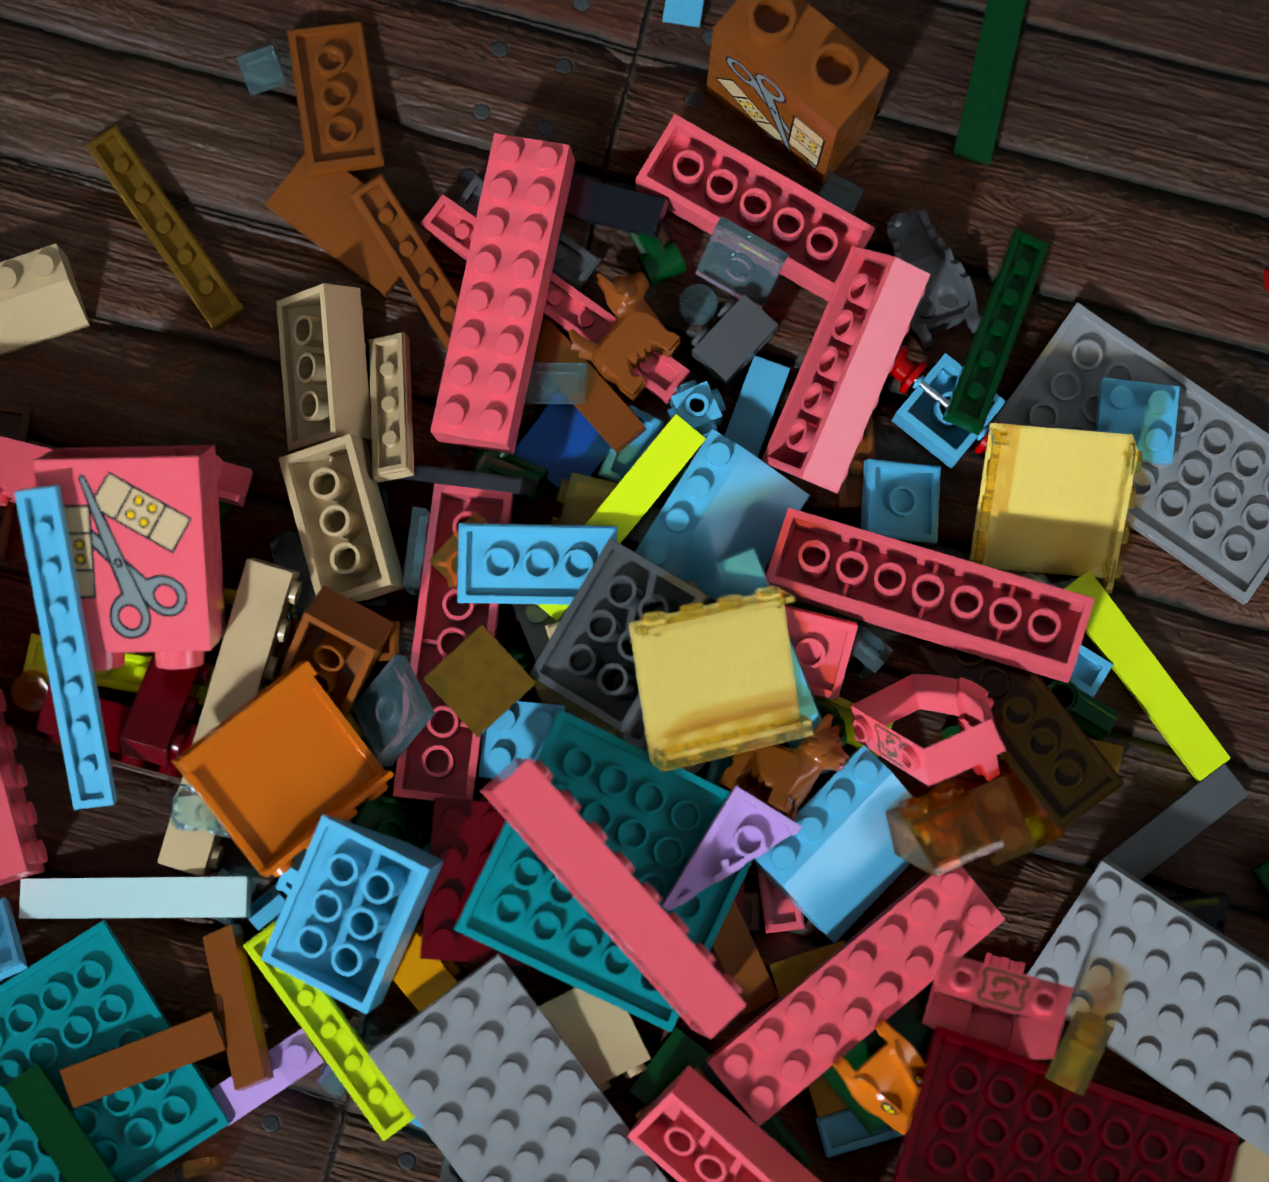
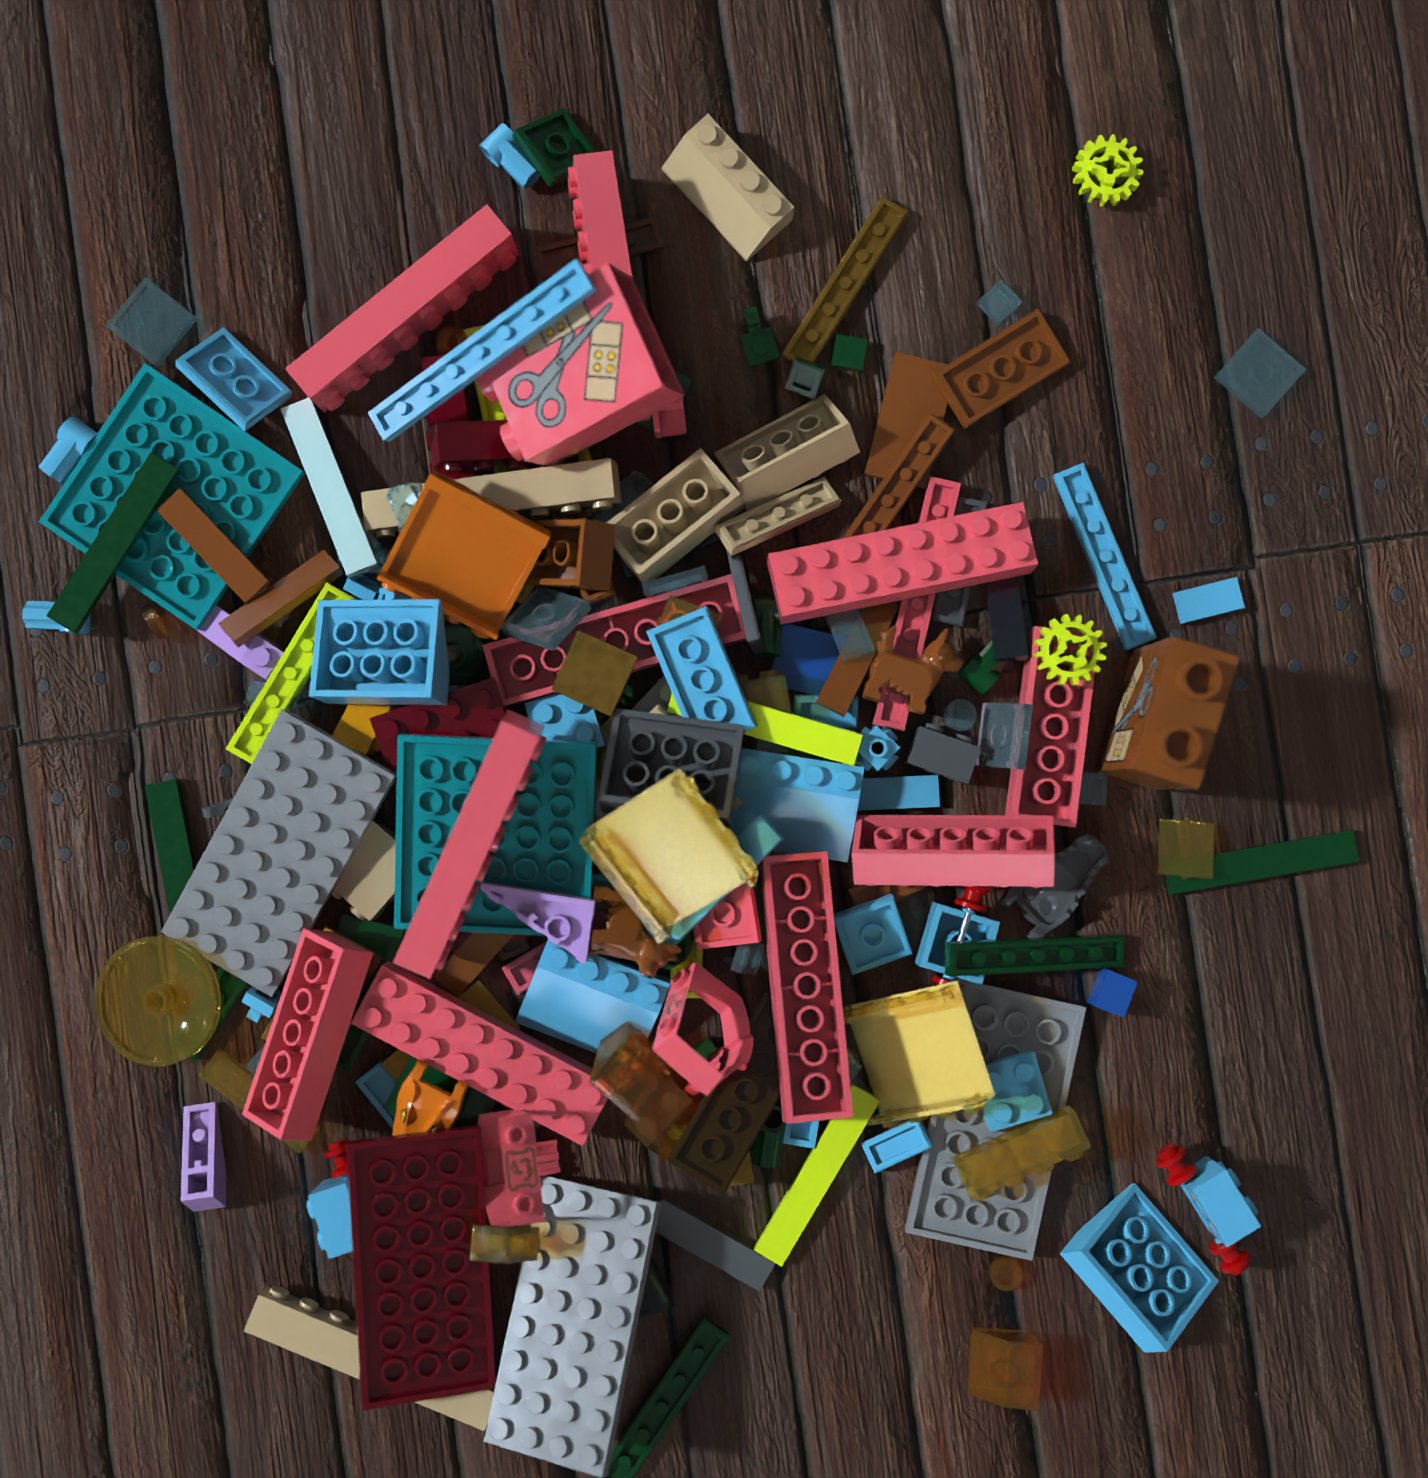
camera: 70 degrees right, 5 degrees up
(188, 349) = (758, 343): none -> dark green plate
(243, 255) = (849, 353): none -> dark green tile
(249, 314) = (805, 377): none -> tile
(590, 76) = (1104, 556): none -> medium azure tile
(693, 150) = (1062, 639): none -> neon yellow gear
(947, 123) = (1185, 848): none -> clear yellow piece
(1071, 267) = (1112, 992): none -> blue panel
(1145, 572) = (896, 1145): none -> medium azure tile
(1209, 438) = (1021, 1153): none -> clear yellow brick

